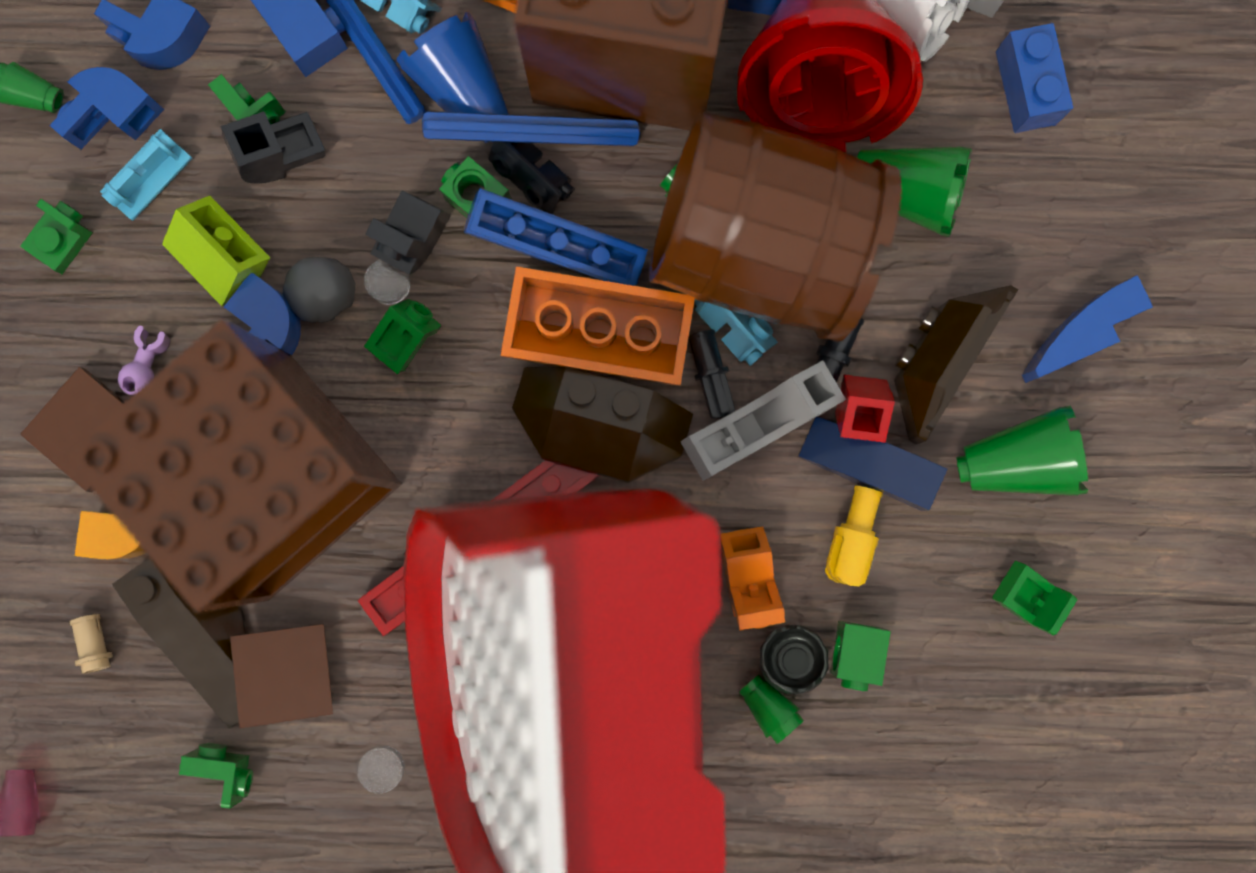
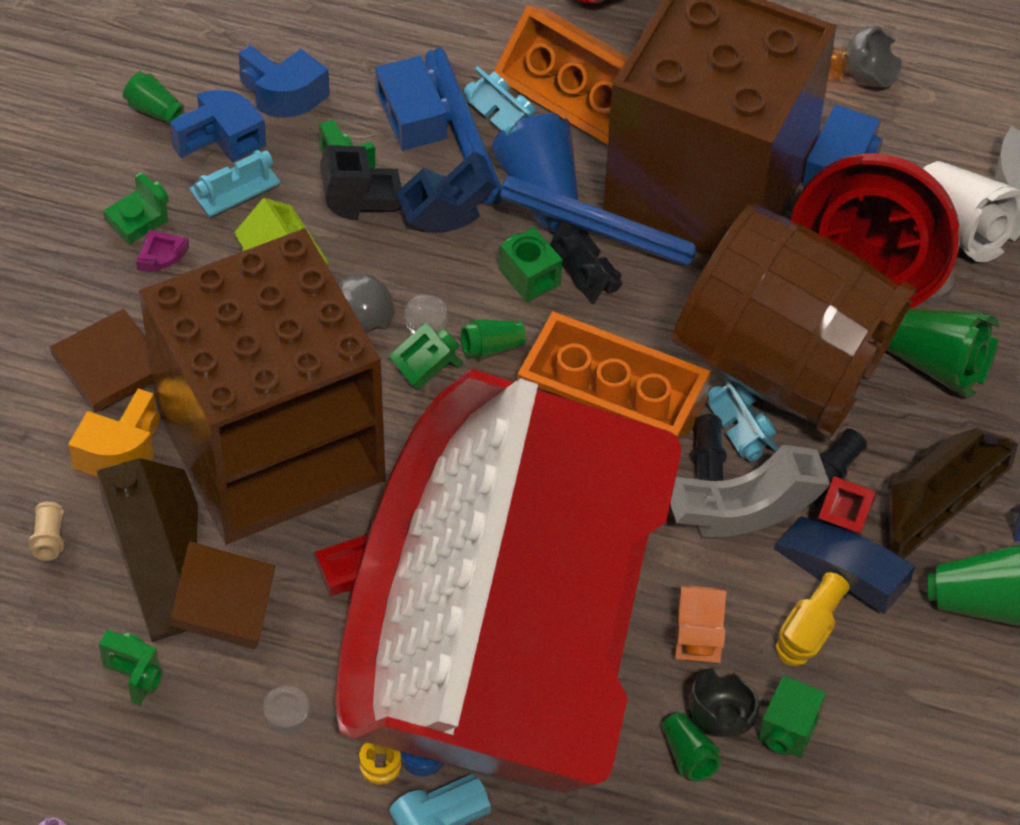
camera: 10 degrees right, 30 degrees down
(96, 276) = (161, 251): none -> magenta tile
(368, 139) = (449, 201): none -> dark blue brick
(408, 233) = (460, 274): black brick -> none
(460, 294) = (490, 337): none -> green cone
(554, 239) = (587, 298): blue brick -> none
(1034, 598) = (976, 711): green bracket -> none

